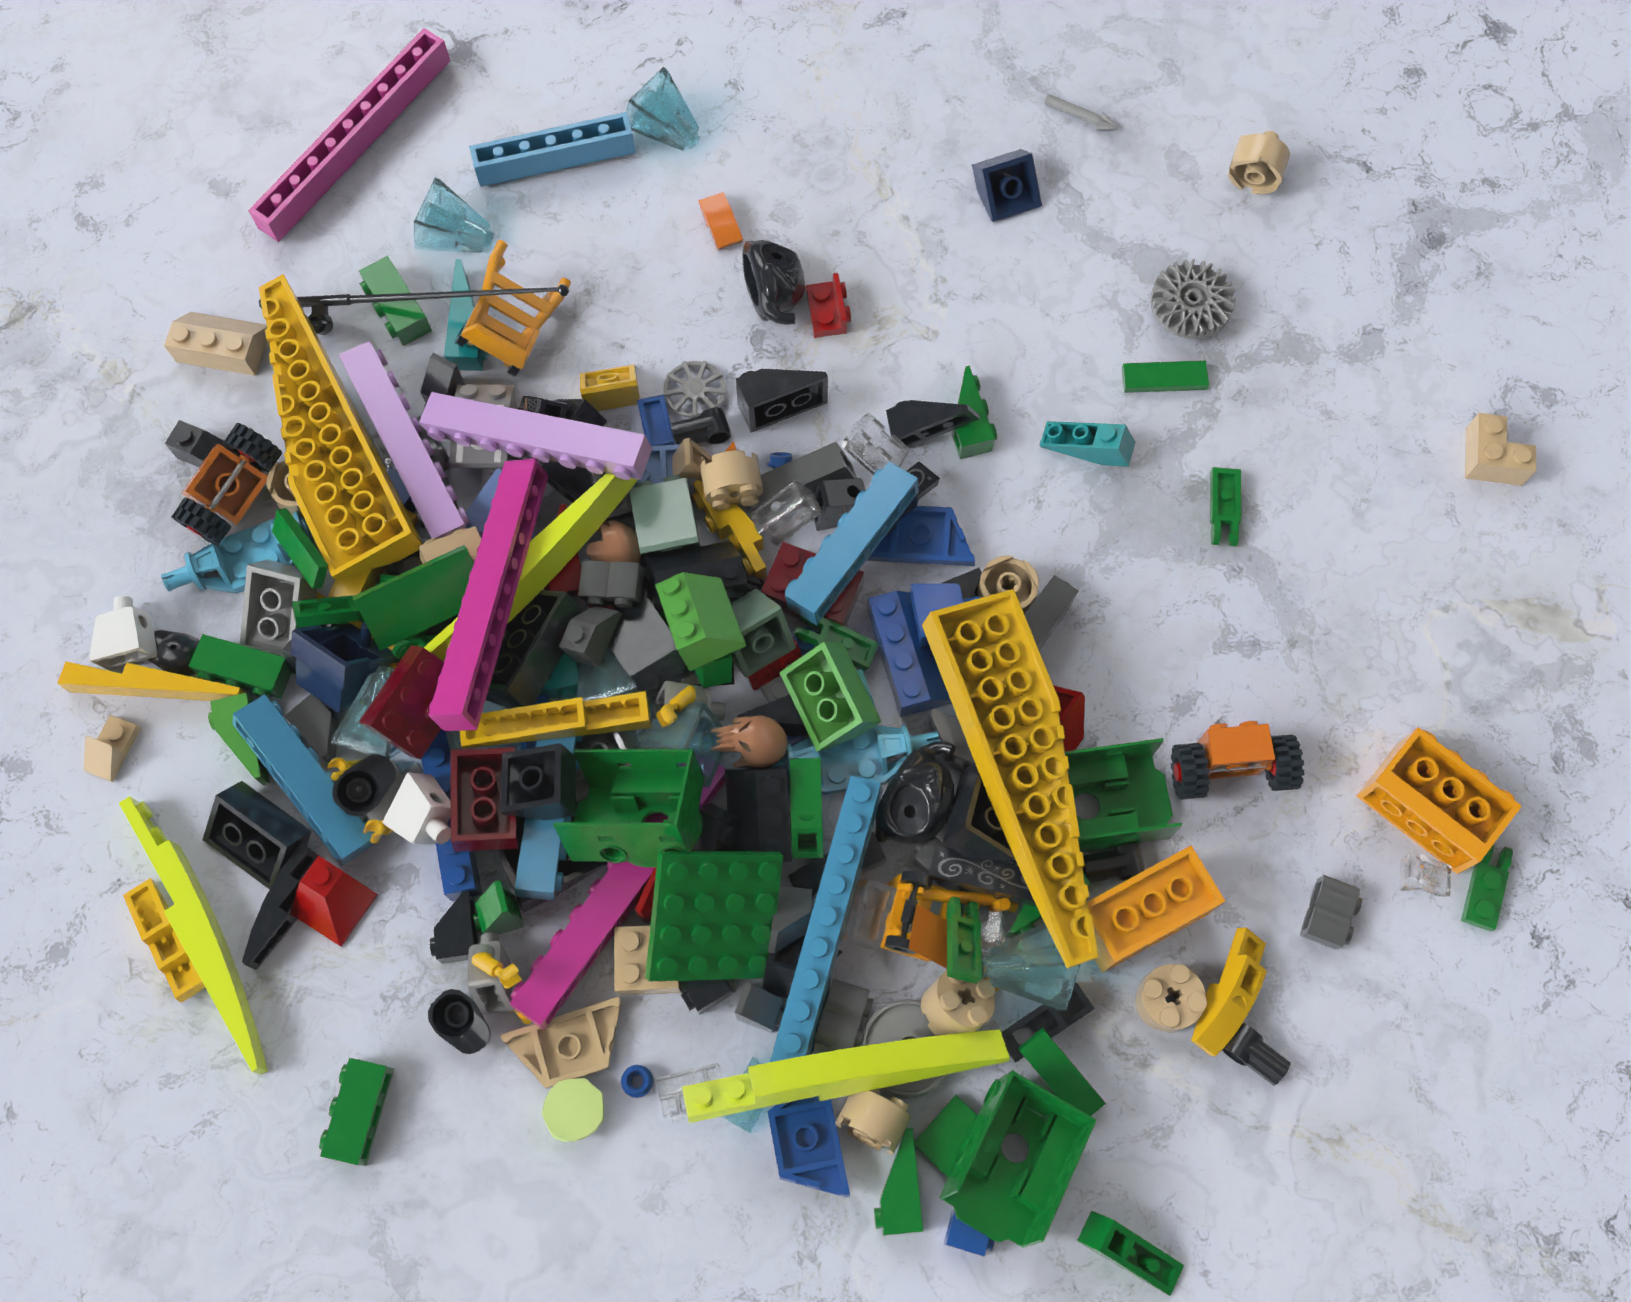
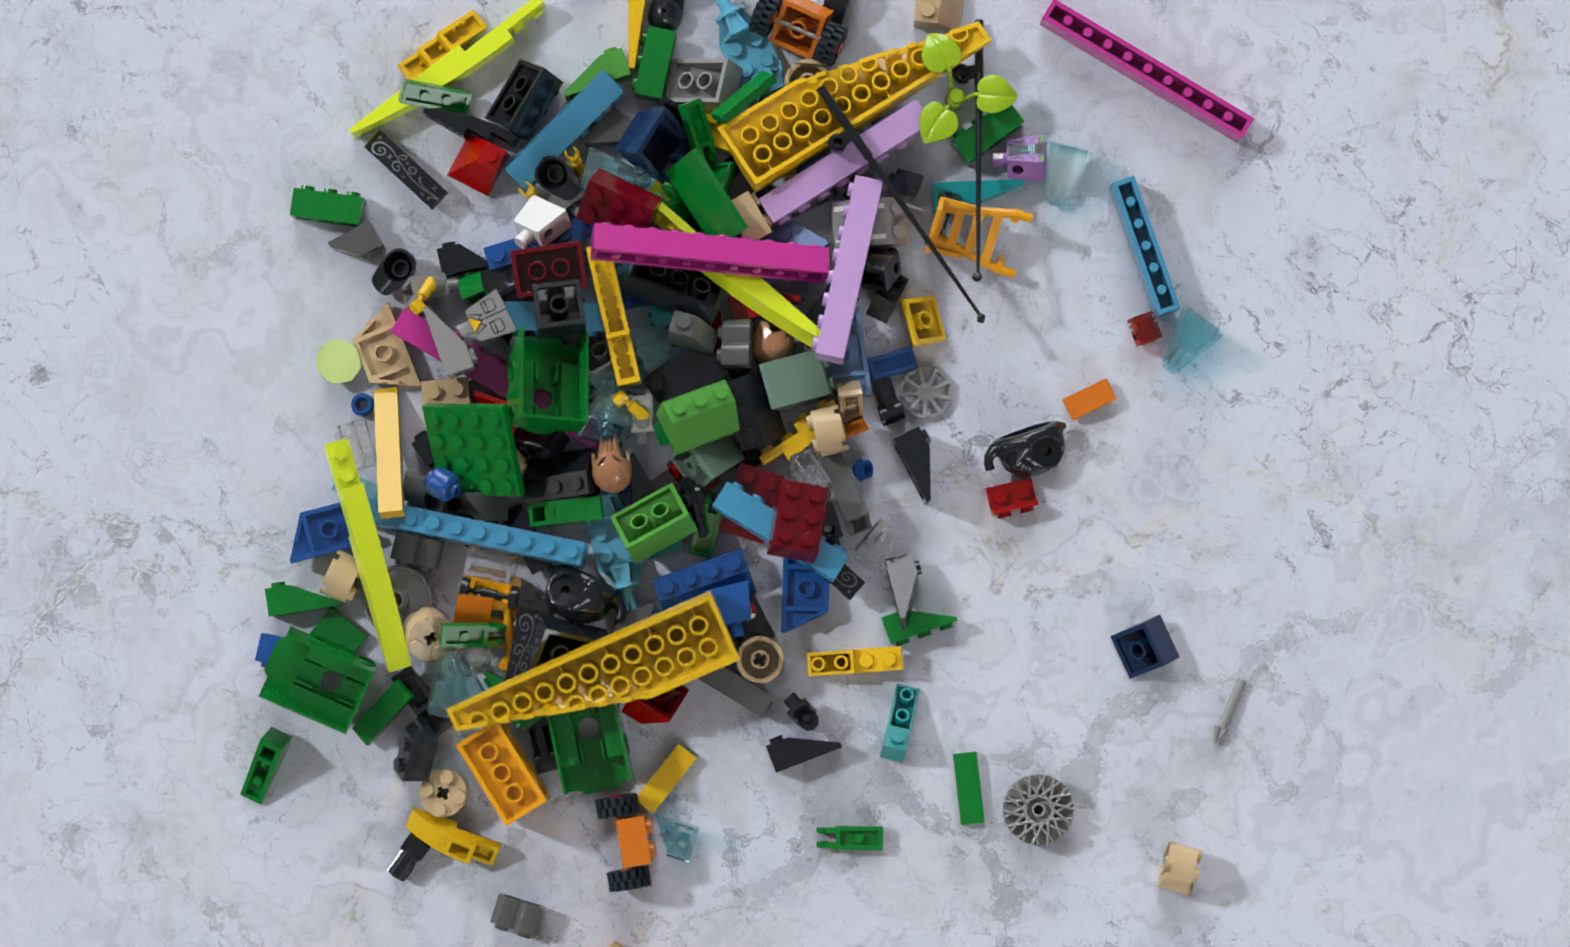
camera: 90 degrees right, 15 degrees up
(227, 949) = (435, 96): none -> green tile
(322, 998) = (406, 170): none -> black slope
(371, 332) = (939, 122): none -> lime plant
(376, 435) = (851, 135): none -> black piece
(412, 1070) = (360, 242): none -> dark grey slope
(432, 257) = (1023, 158): none -> medium lavender torso
(538, 877) = (487, 318): none -> light grey torso
(572, 934) = (453, 352): none -> light grey slope
(646, 158) = (1144, 329): none -> clear red piece
(709, 1040) = (389, 453): none -> yellow slope
(758, 961) = (442, 484): none -> blue head
(802, 639) = (693, 499): none -> black piece
(842, 508) = (797, 521): none -> dark red brick
(1012, 483) = (855, 661): none -> yellow slope
(1074, 545) = (802, 712): none -> black hips
(1120, 1023) = (416, 751): none -> black slope
(1121, 562) = (793, 751): none -> black slope
(1150, 715) = (666, 778): none -> yellow tile
(1226, 703) = (678, 837): none -> clear light blue slope

